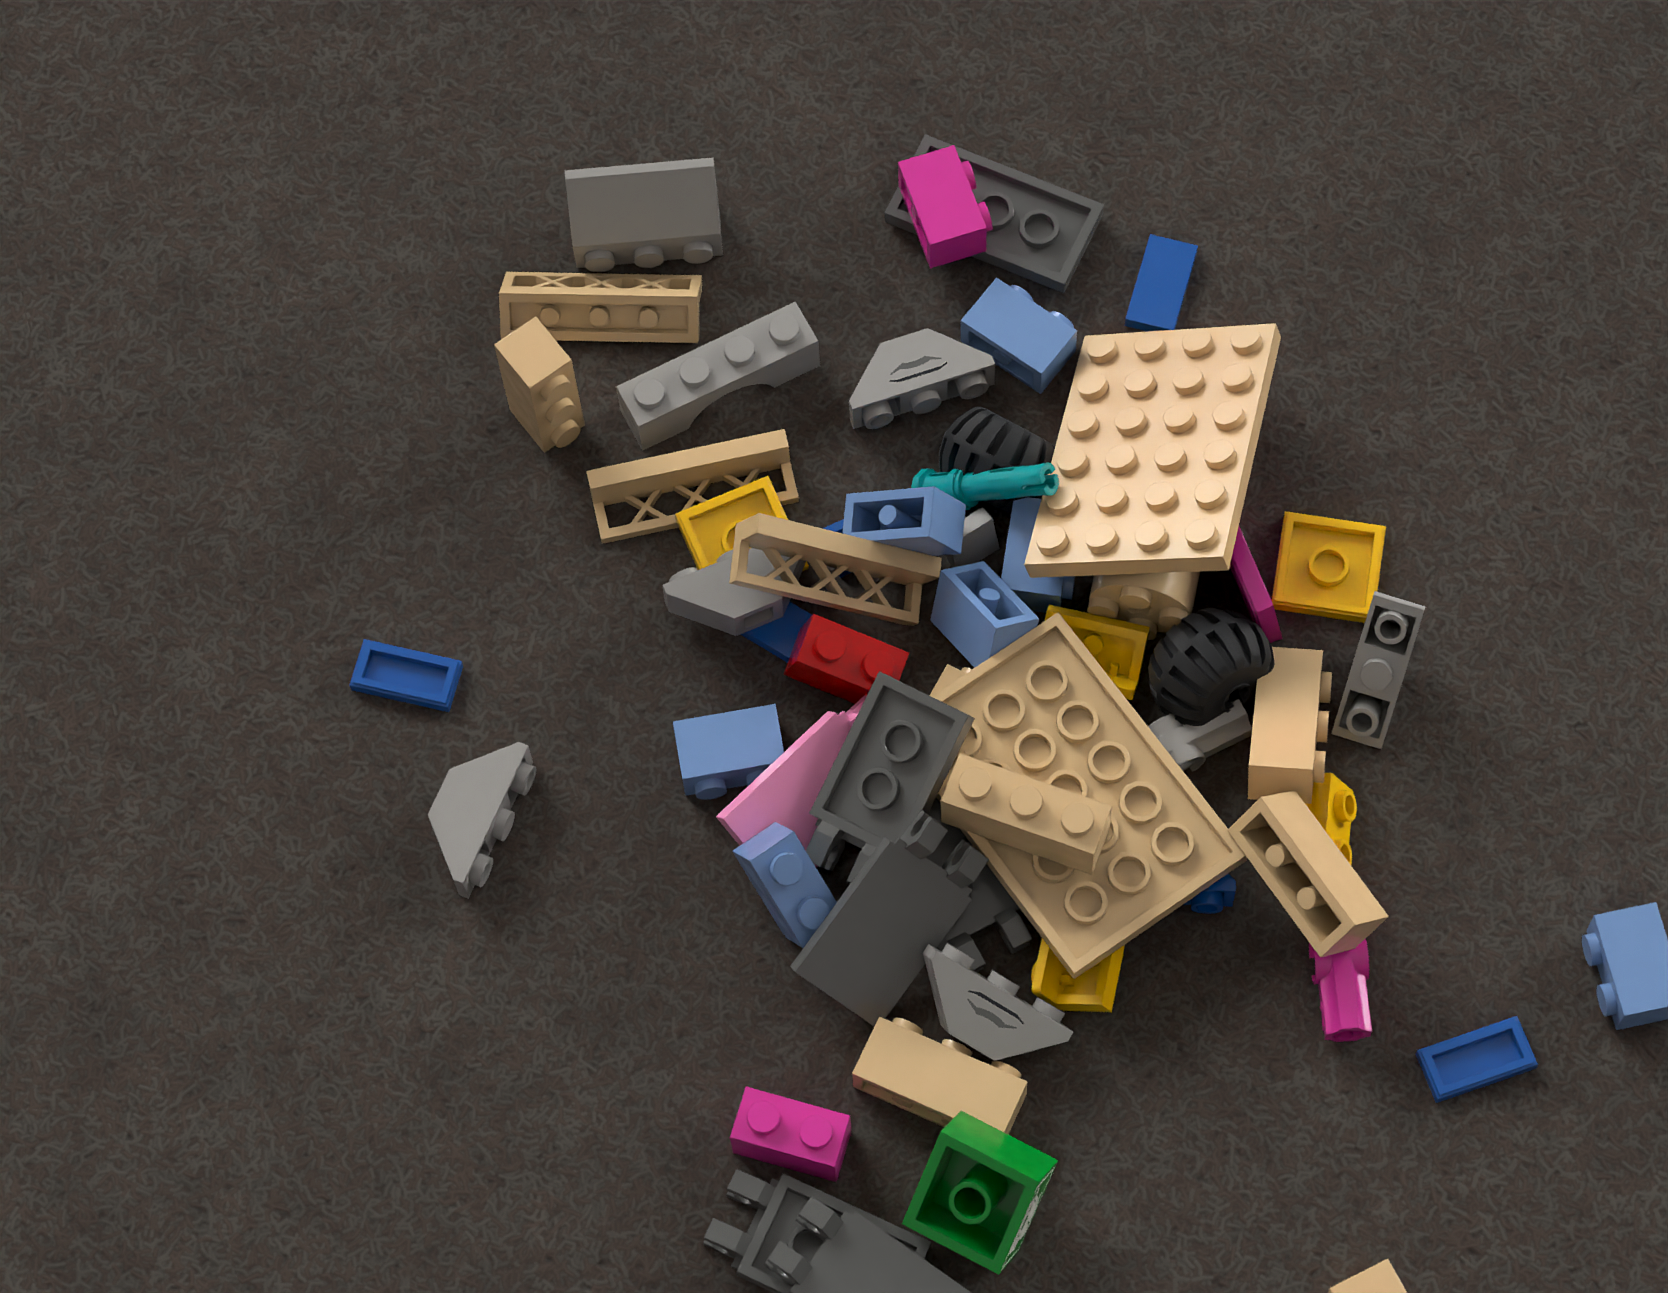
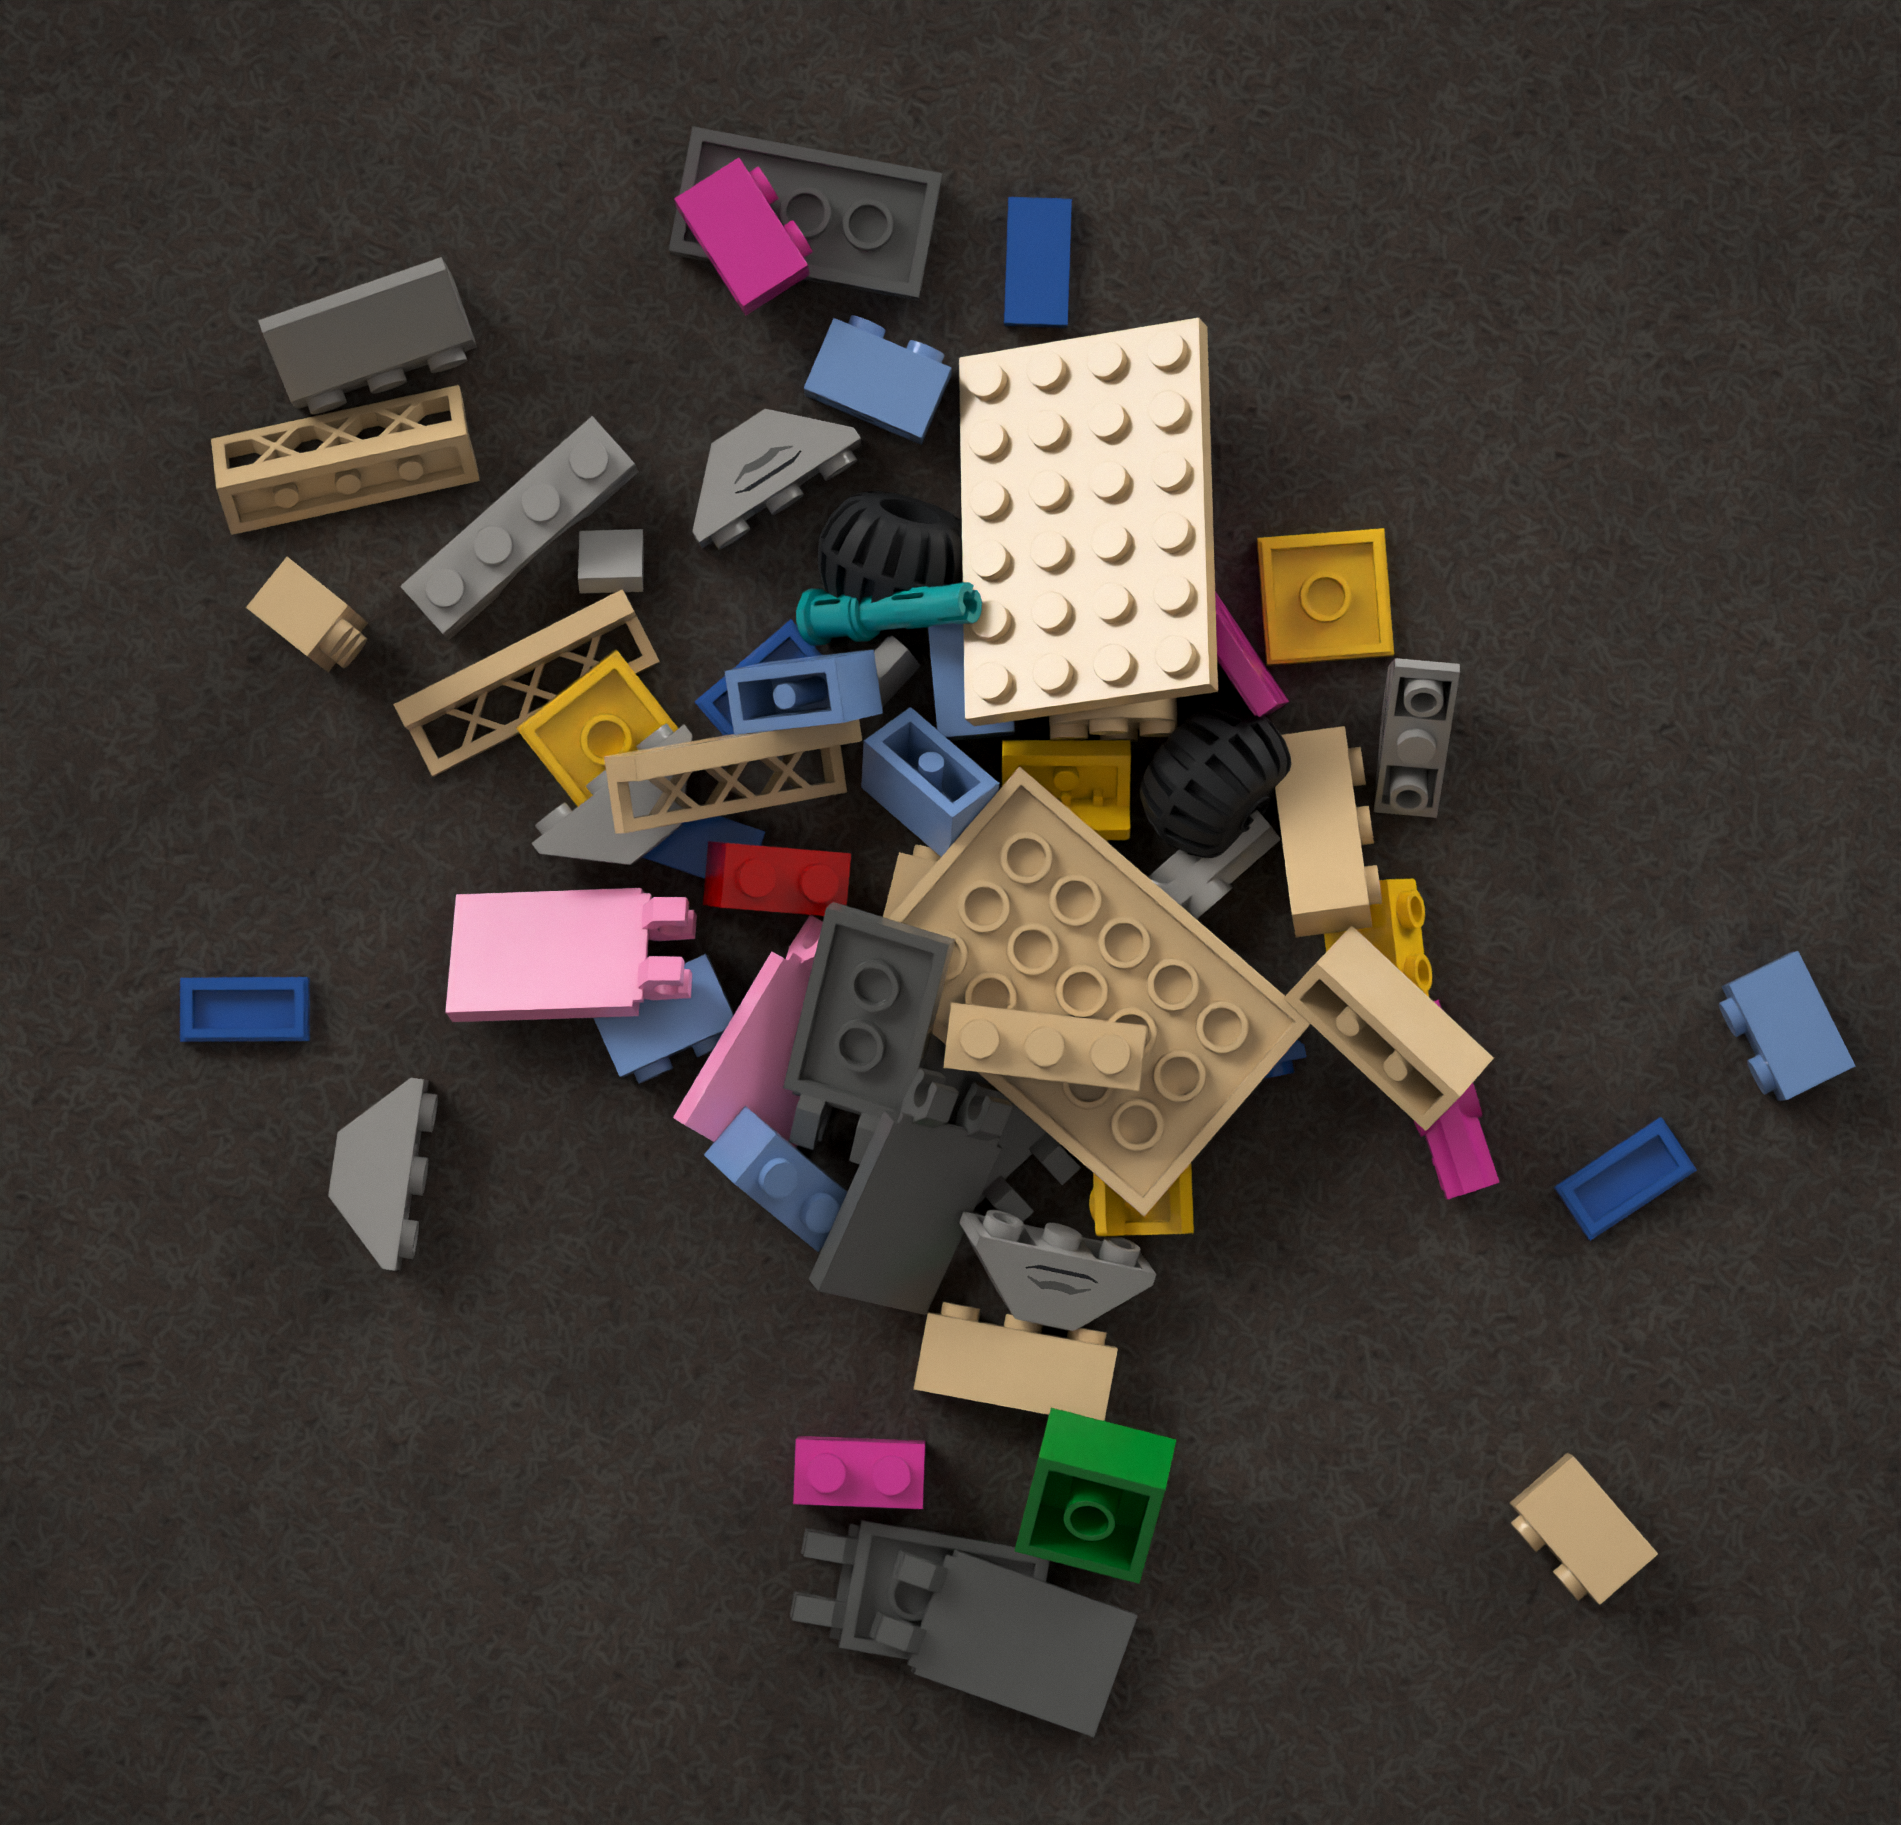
camera: 15 degrees left, 20 degrees up
(667, 681) = (564, 954): none -> bright pink tile
(781, 413) = (611, 561): none -> light grey tile

